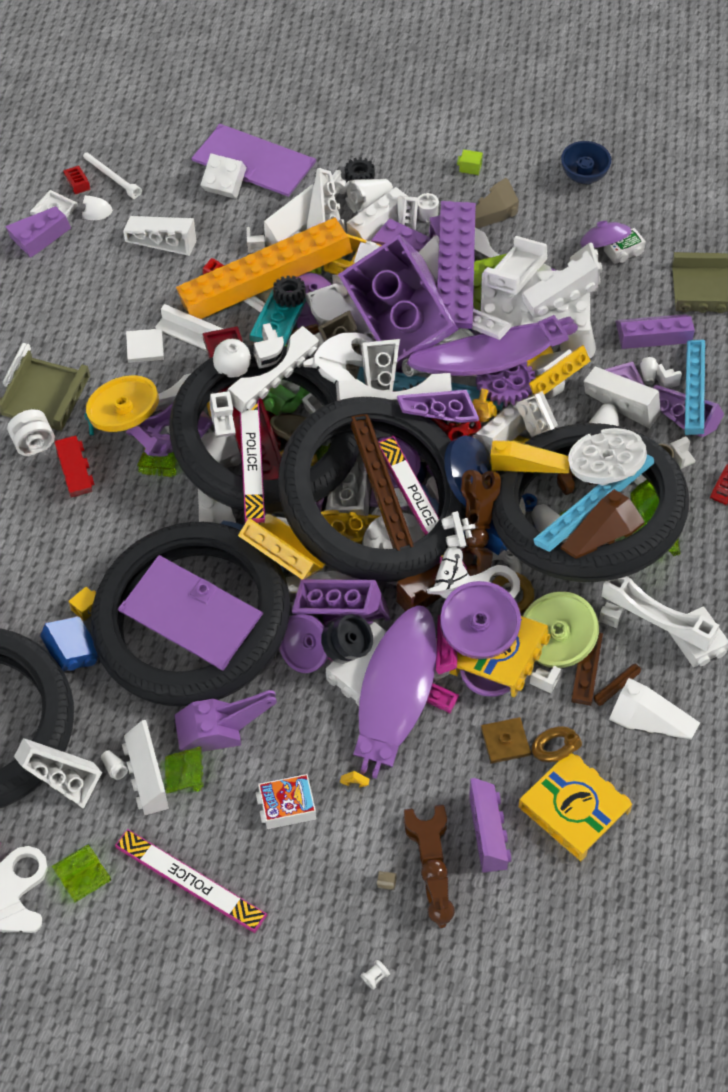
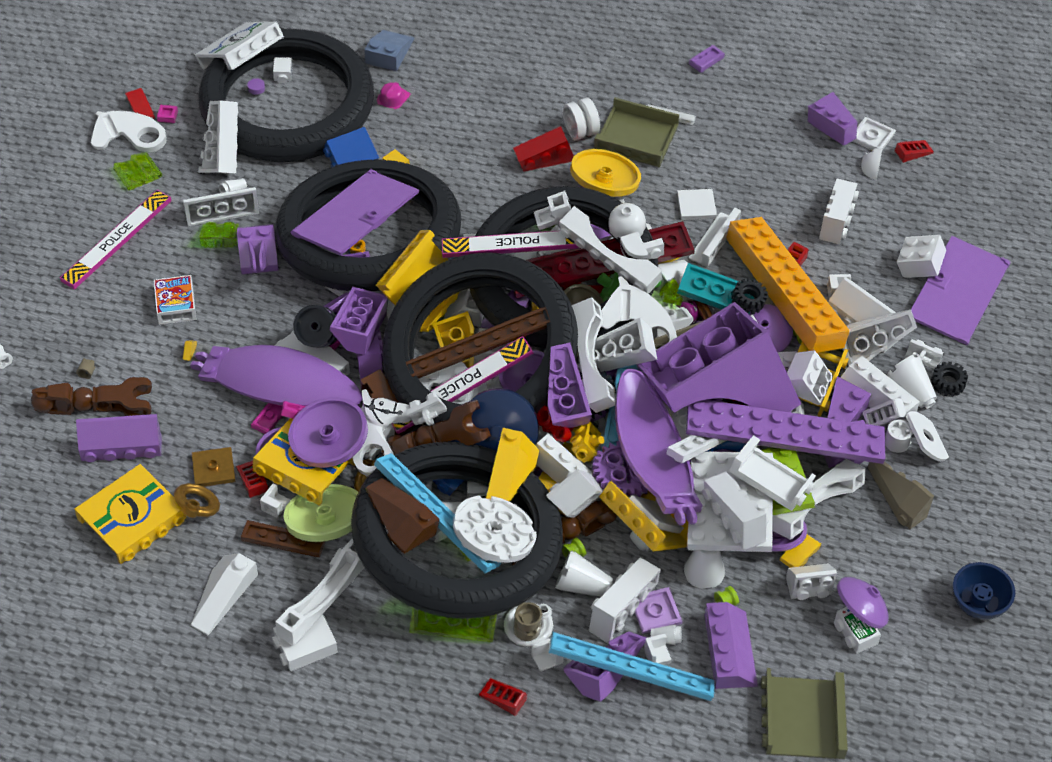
camera: 90 degrees right, 5 degrees down
(131, 189) = (903, 190): white piece -> none
(437, 186) = (921, 425): none -> white piece
(470, 162) = (977, 482): lime brick -> none
(527, 704) = (256, 489): none -> red slope
(607, 329) = (728, 595): none -> lime wheel
(617, 684) = (262, 565): reddish brown axle -> none

